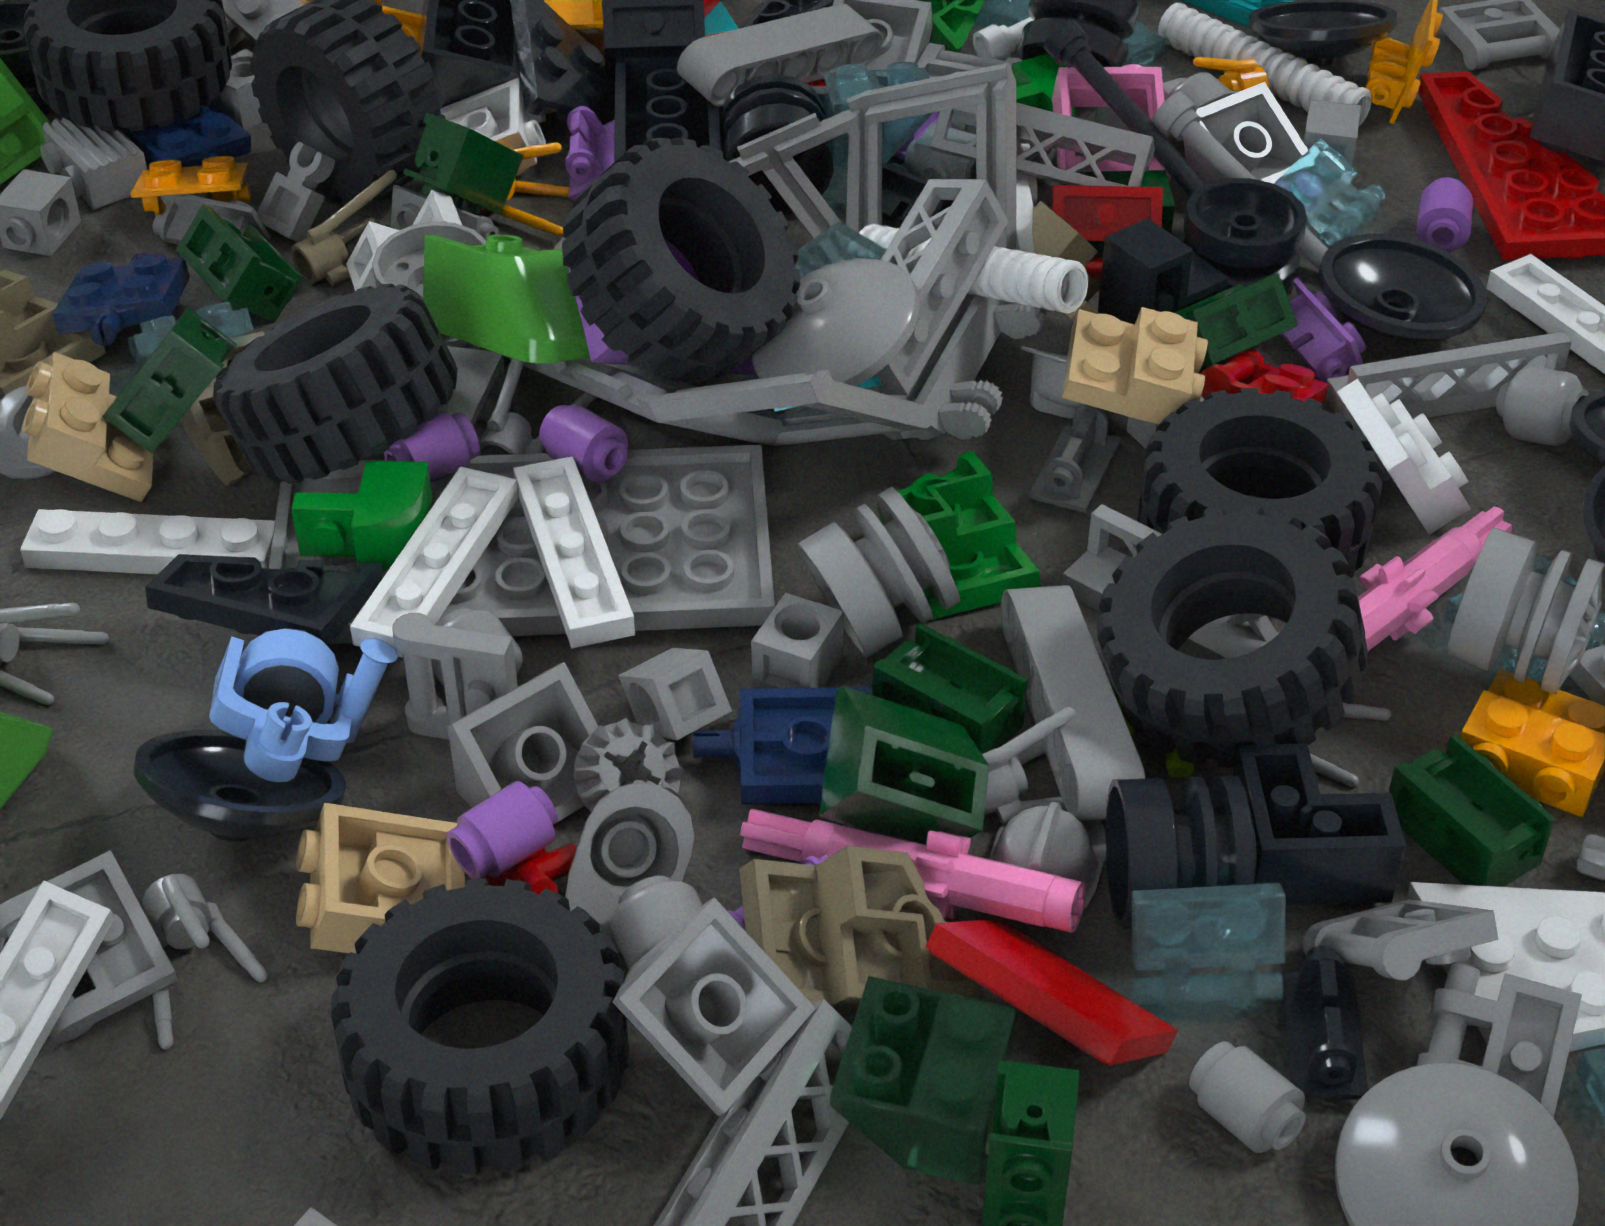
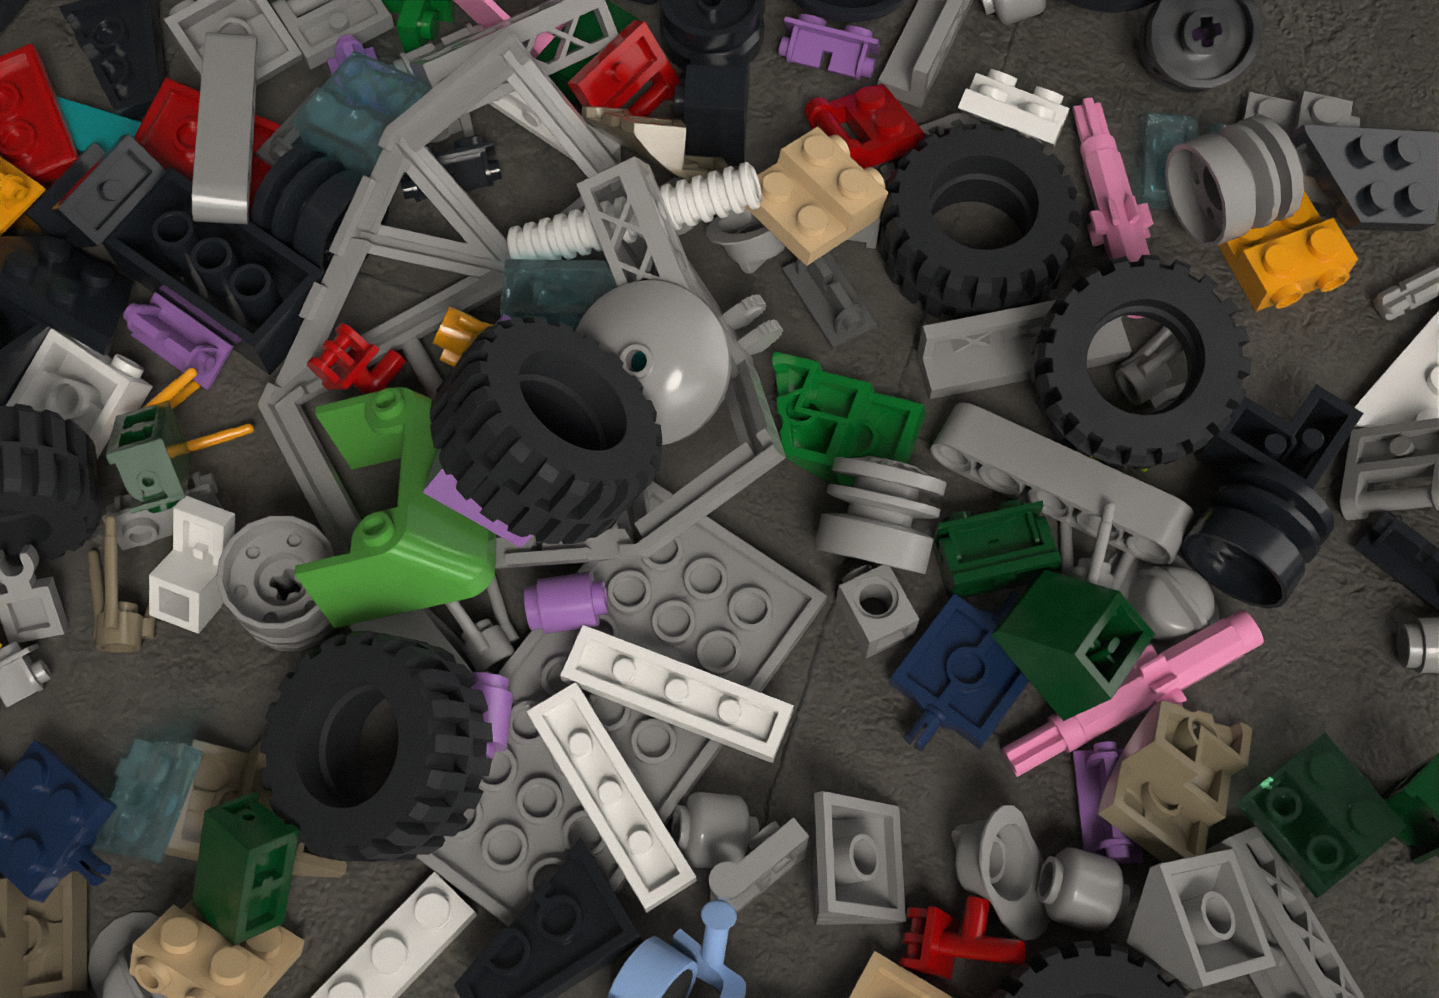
camera: 50 degrees left, 25 degrees up
(239, 265) = (87, 703): dark green hinge -> none
(367, 523) = (541, 811): green brick -> none
(503, 831) = (951, 943): medium lavender brick -> none
(618, 741) = (893, 794): light grey gear -> none
(675, 692) = (869, 725): light grey brick -> none
(1051, 990) = (1305, 694): red tile -> none
(1208, 929) = (1338, 576): clear light blue plate -> none
(1241, 317) = (786, 93): dark green hinge -> none
(1470, 815) = (1321, 344): dark green hinge -> none

